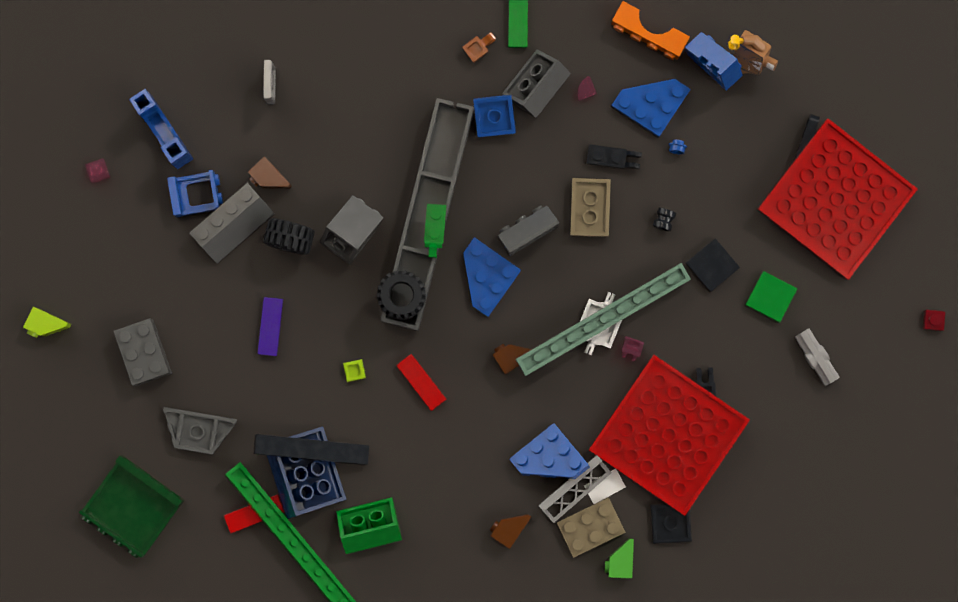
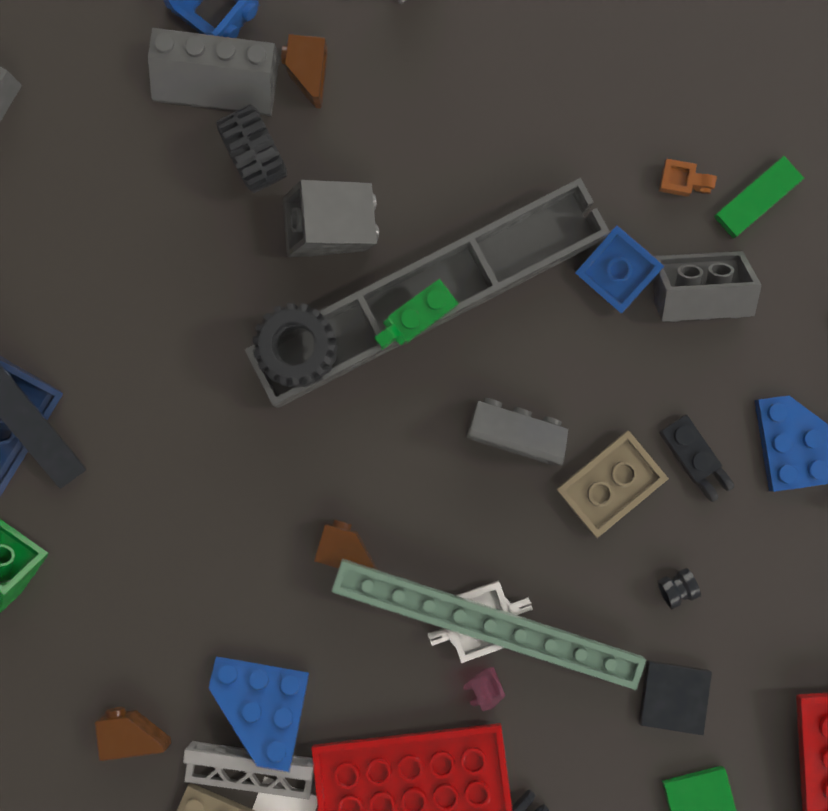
camera: 40 degrees right, 0 degrees up
(270, 326) = (129, 227): dark purple tile -> none
(354, 370) = (163, 372): lime tile -> none
(421, 382) = (218, 465): red tile -> none
(487, 276) = (418, 432): blue plate -> none
(586, 89) = (749, 352): clear pink tile -> none
(677, 147) = (780, 525): blue plate -> none

